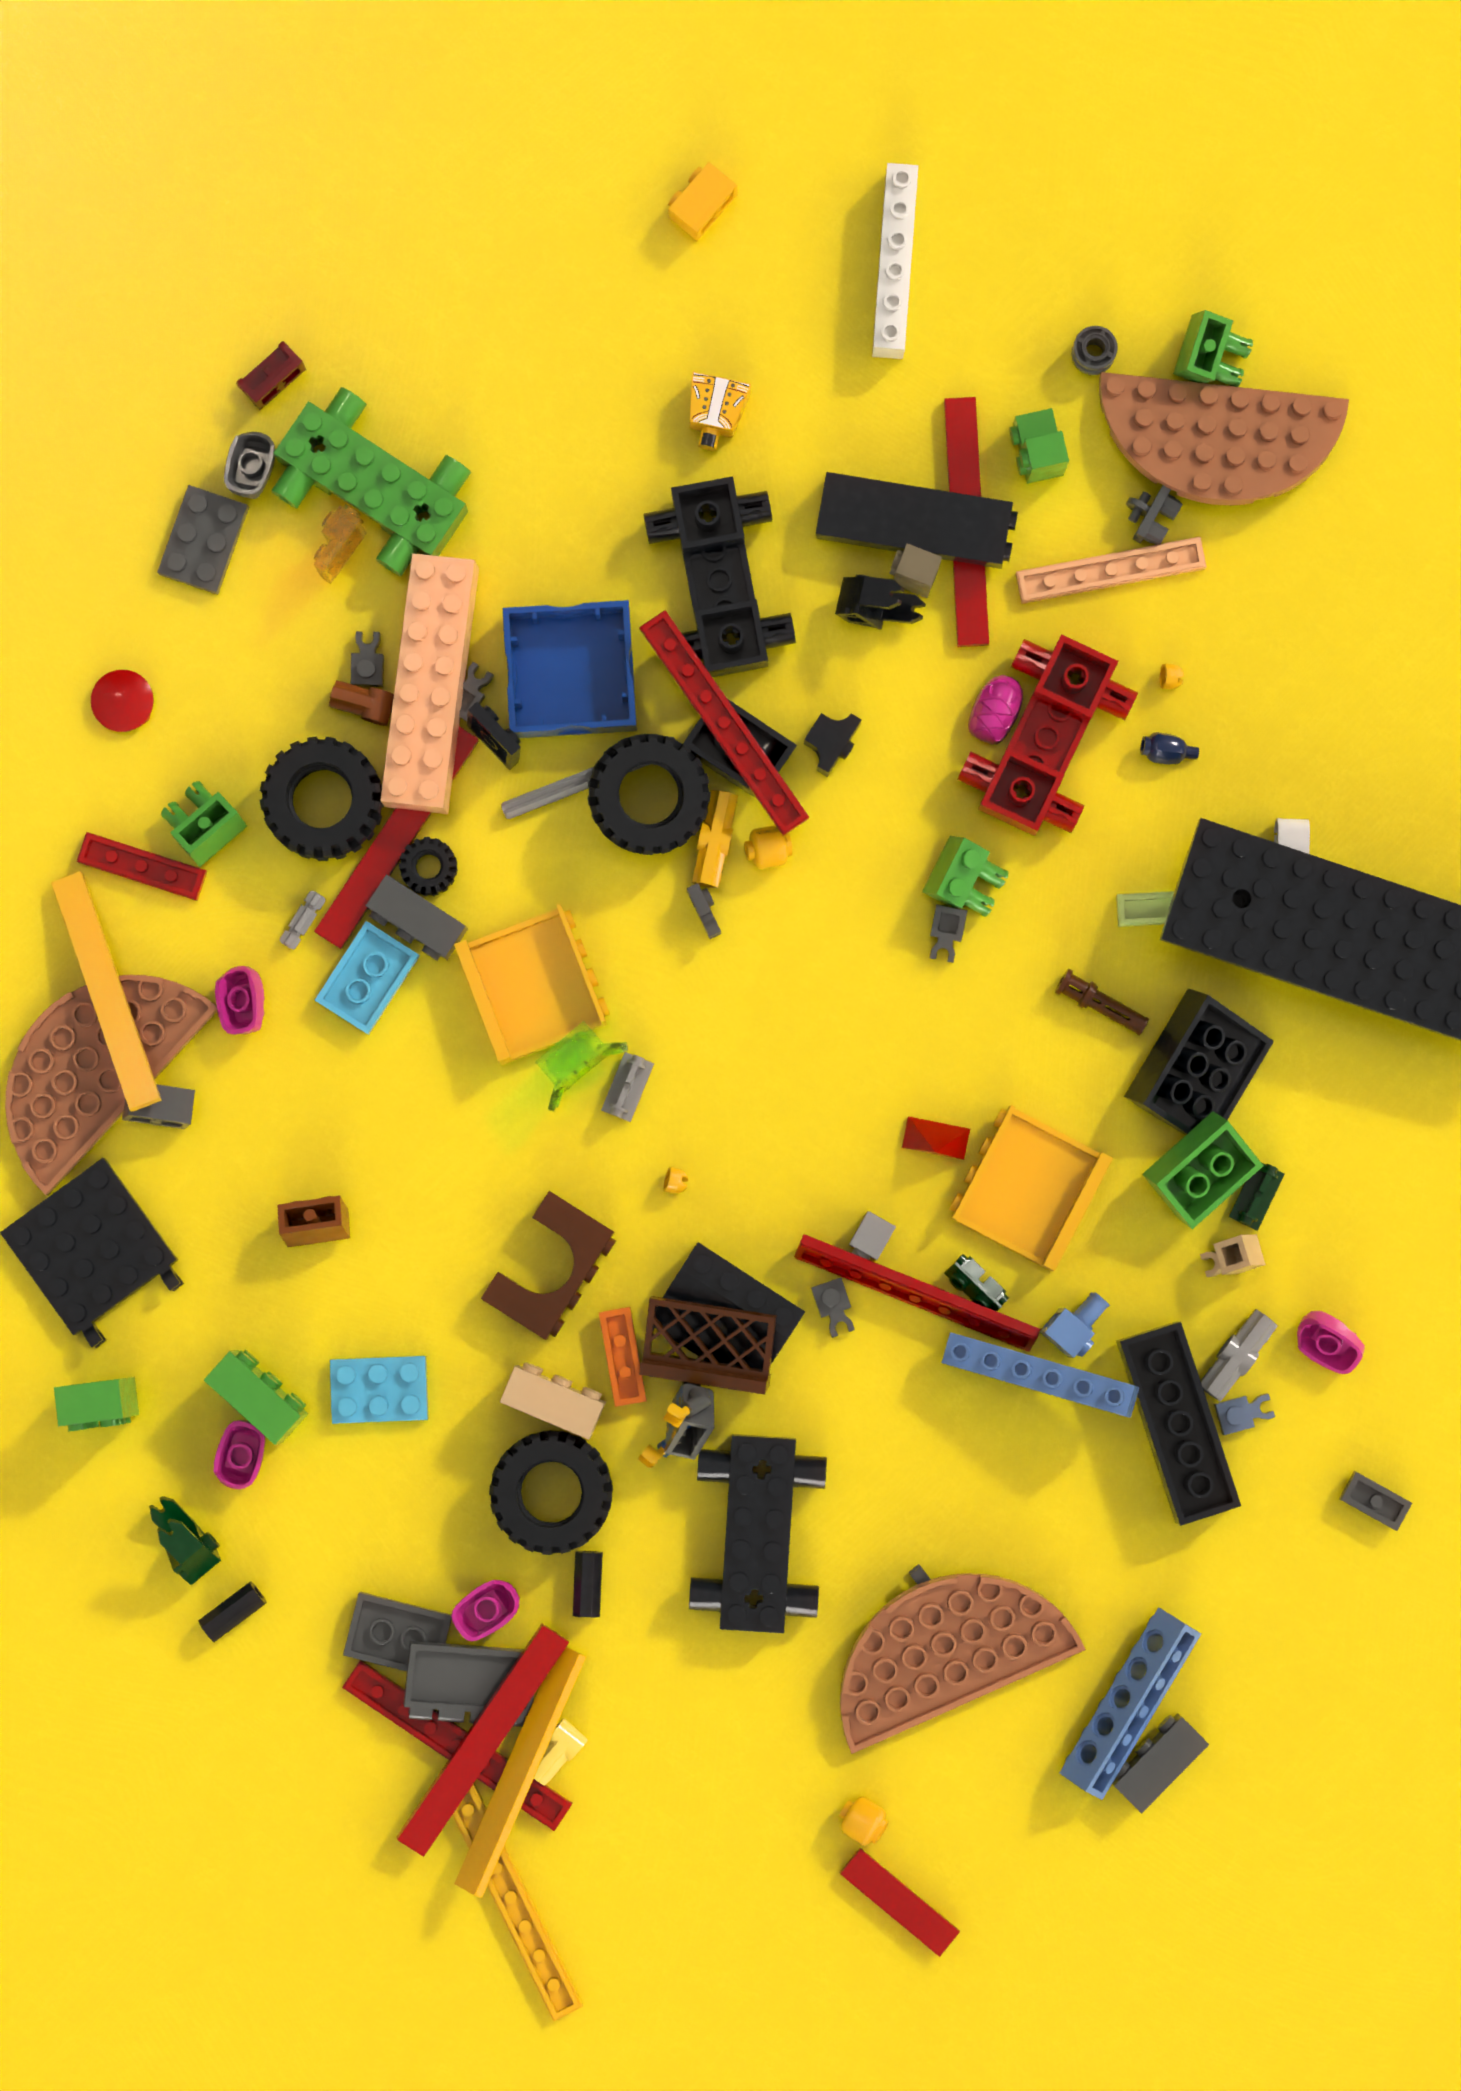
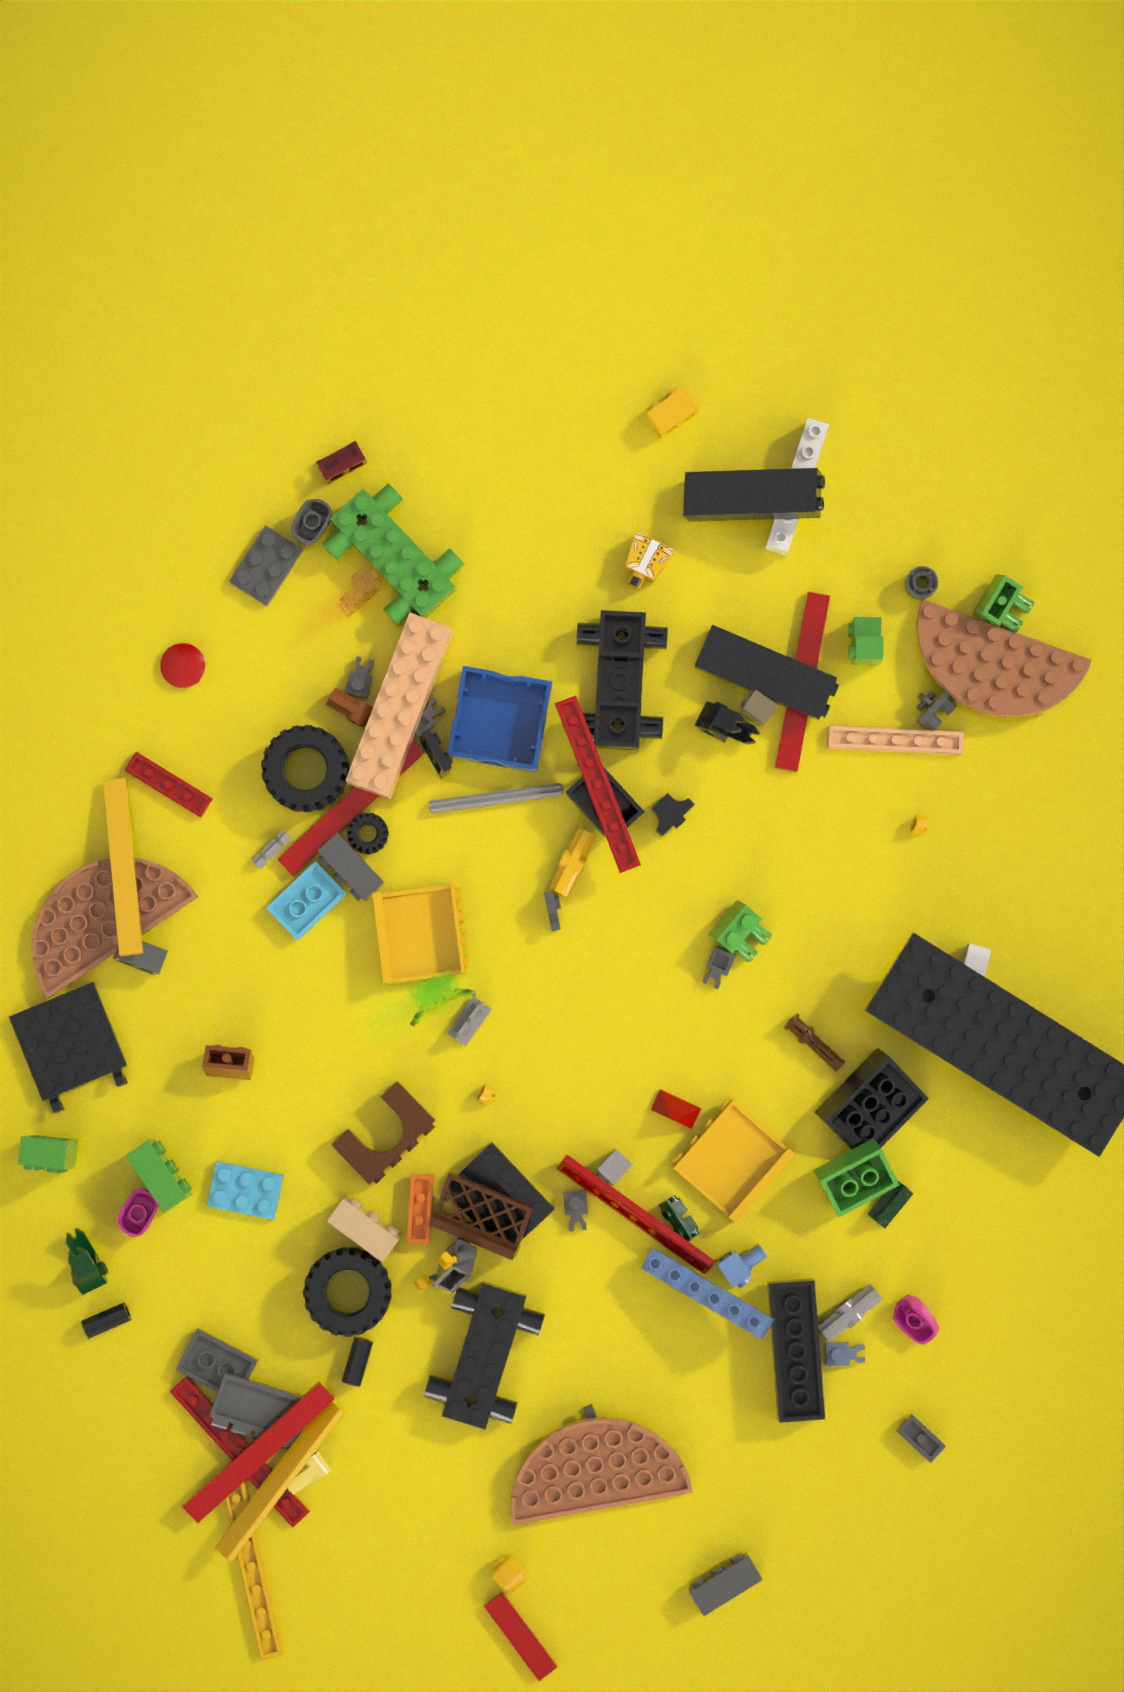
camera: 15 degrees right, 0 degrees up
(208, 827) = (221, 769): bright green brick -> none
(240, 1000) = (214, 895): dark pink piece -> none
(485, 1609) = (282, 1362): dark pink piece -> none
(692, 794) = (543, 850): black tyre -> none
(768, 847) = (607, 877): yellow head -> none
(839, 283) = (753, 494): none -> black brick
(996, 709) = (791, 819): dark pink piece -> none
(1048, 735) = (822, 846): red piece -> none
(1130, 1719) = (702, 1549): medium blue brick -> none
(1143, 908) = (860, 983): yellowish green tile -> none
(1167, 749) = (904, 875): dark blue plant -> none
(1235, 1255) = (864, 1243): tan brick -> none

